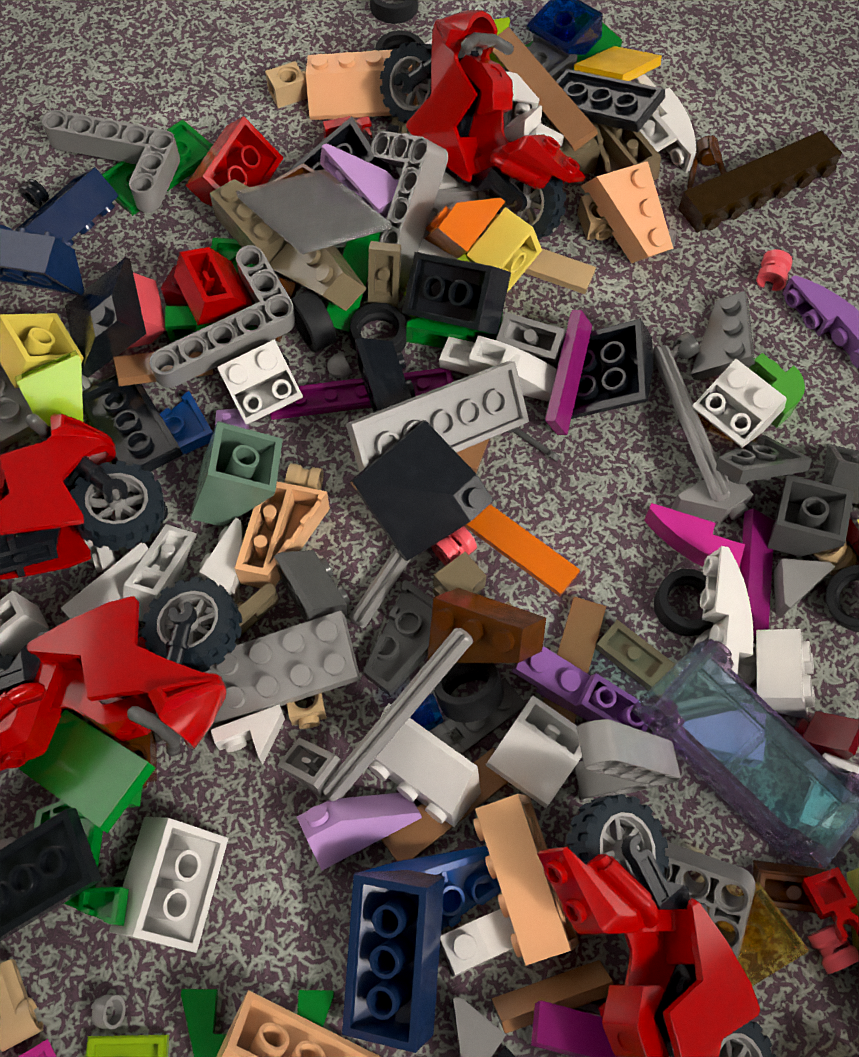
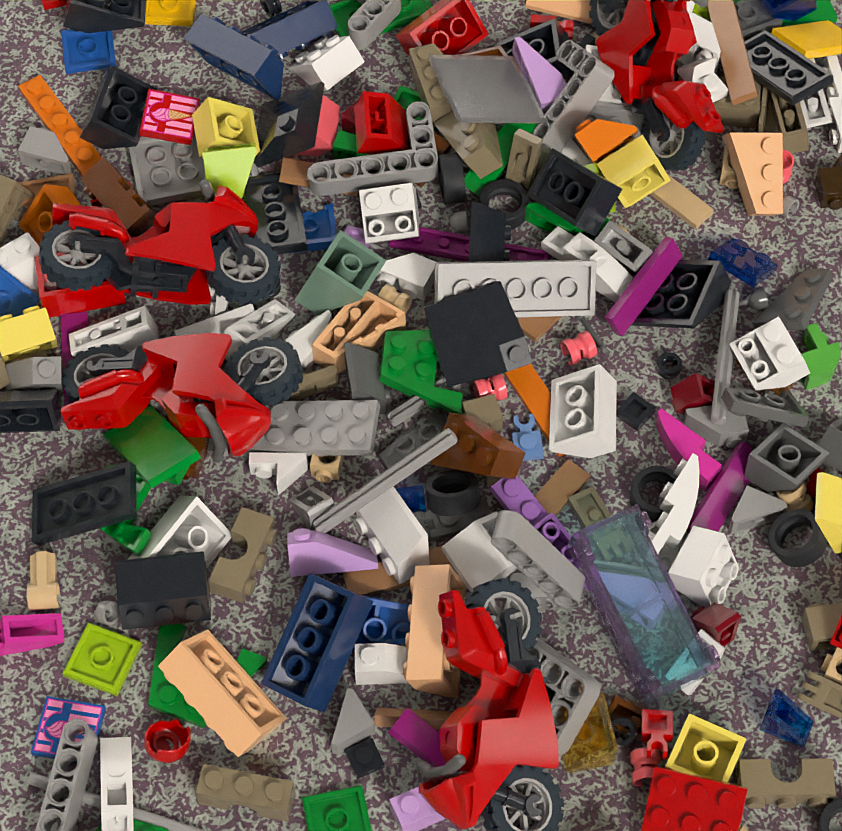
camera: 25 degrees right, 5 degrees down
(122, 234) = (328, 61): none -> white slope
(170, 962) = (163, 590): none -> black slope
(254, 898) = (236, 577): none -> dark tan arch
(310, 444) = (408, 274): none -> white slope
(358, 555) = (410, 367): none -> green wing
(518, 591) = (528, 440): none -> medium blue plate
(530, 463) = (579, 348): none -> coral wheel
(569, 538) = (583, 413): none -> white slope
(620, 514) = (635, 411): none -> black plate
(633, 441) = (671, 357): none -> black bush
(656, 313) = (743, 262): none -> clear blue plate
(675, 475) = (692, 393): none -> dark red slope
(789, 900) = (624, 721): none -> black bush

